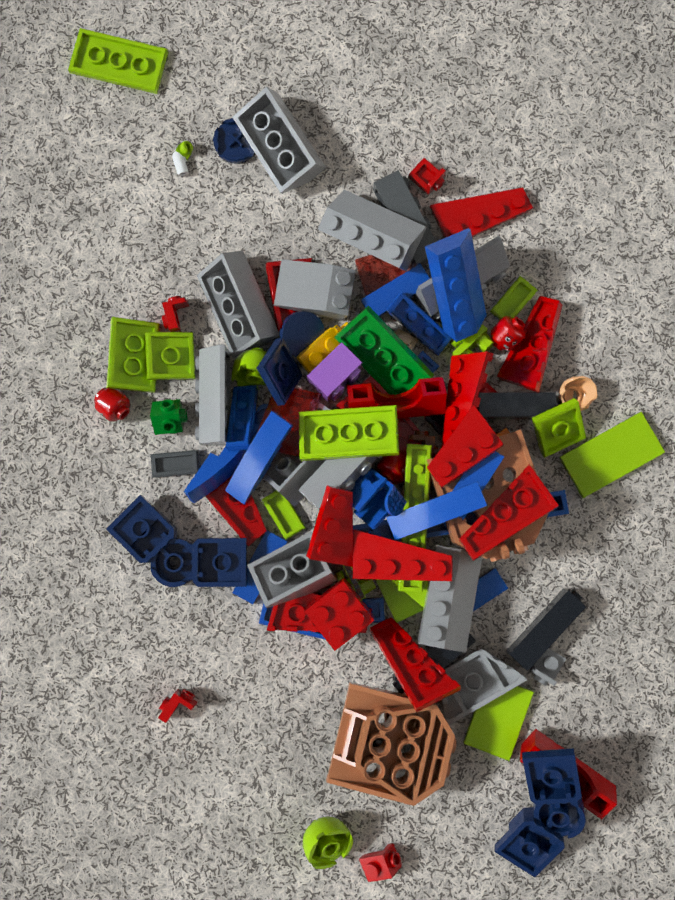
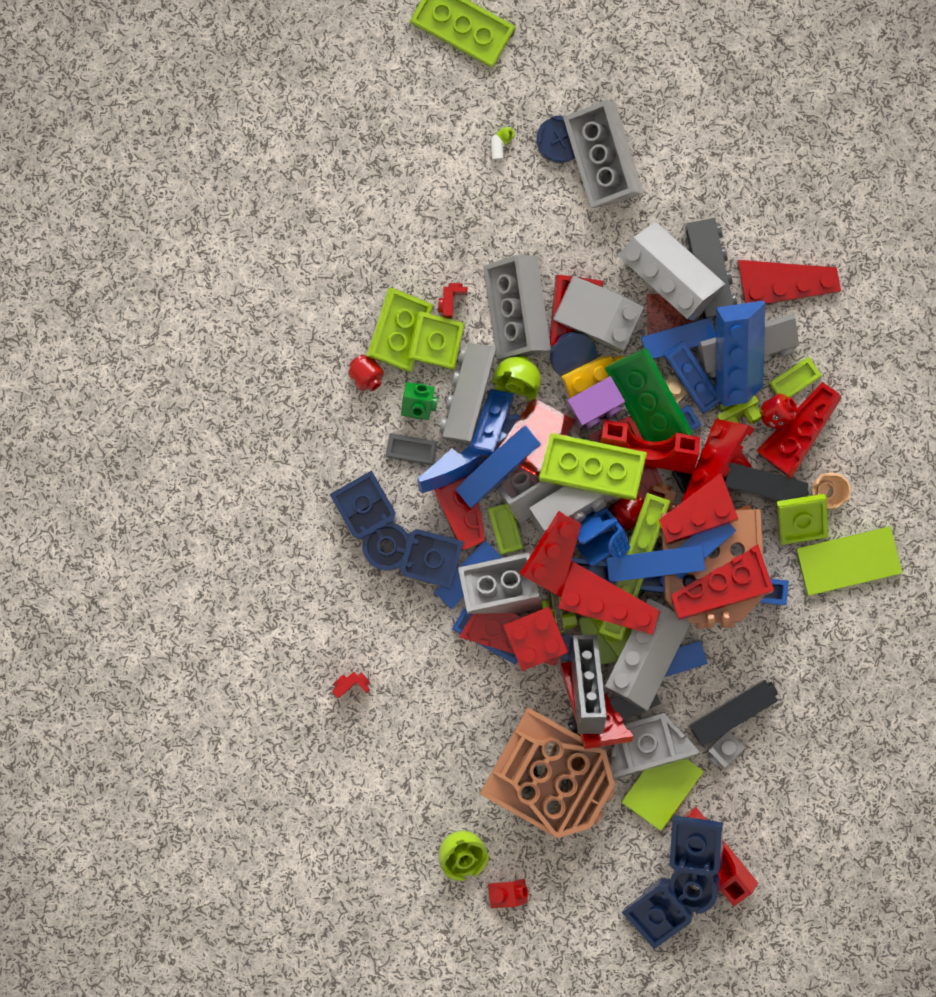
camera: 15 degrees right, 0 degrees up
(279, 371) = (541, 387): dark blue tile -> none
(402, 647) = (587, 684): none -> dark grey brick
(427, 176) = (743, 230): red bracket -> none

